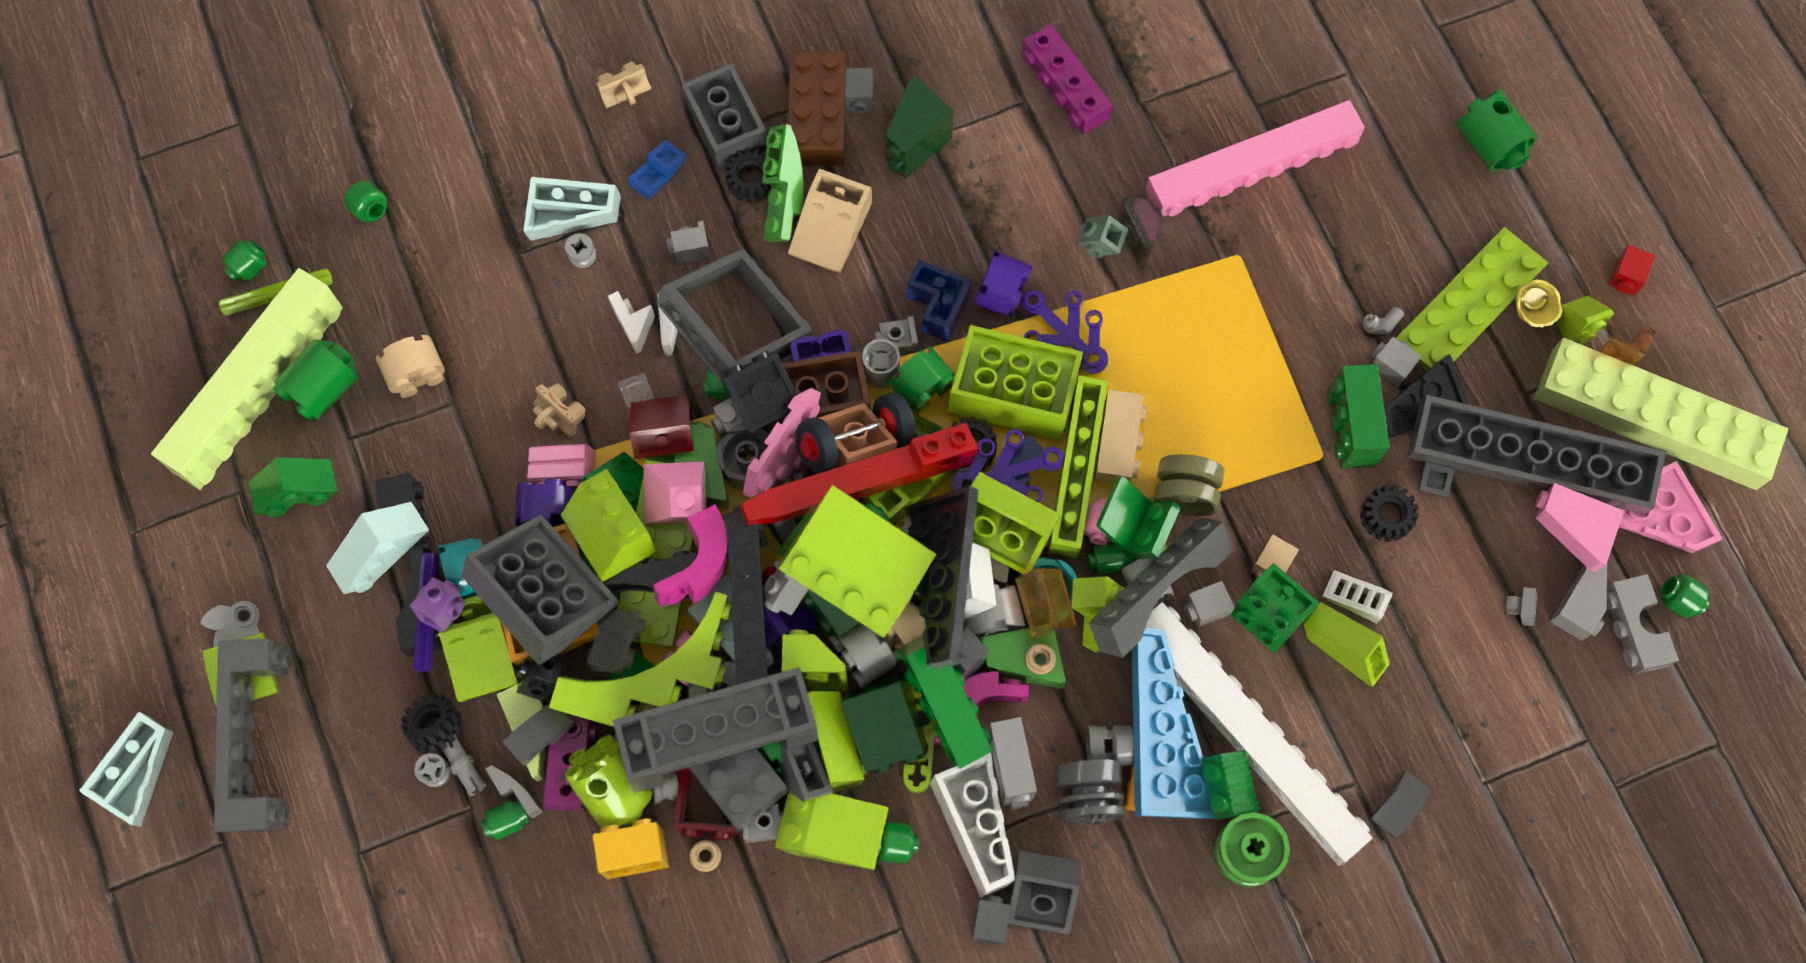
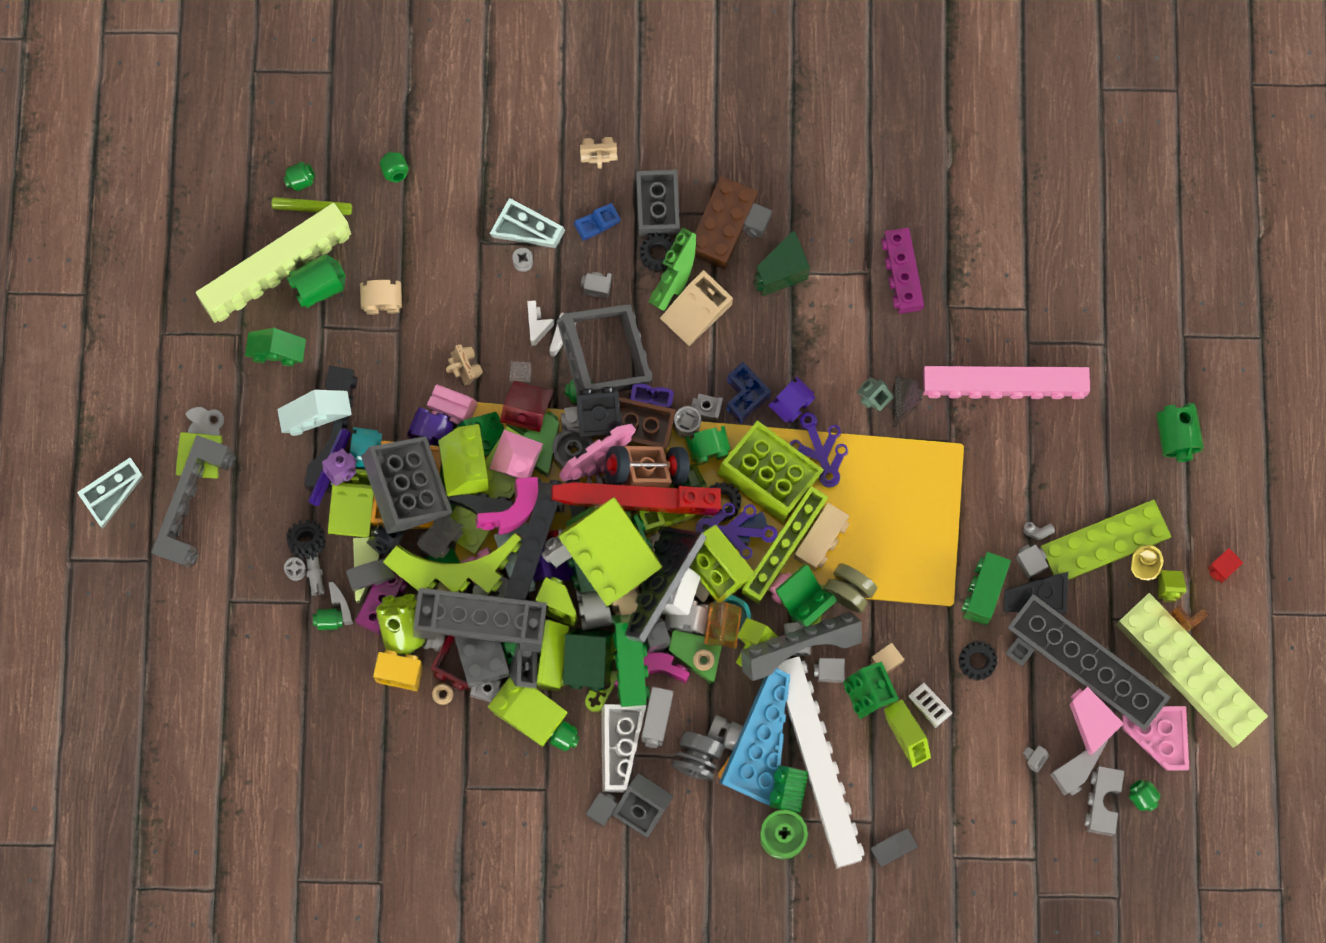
camera: 20 degrees right, 5 degrees up
(1107, 559) = (777, 613): green brick -> none

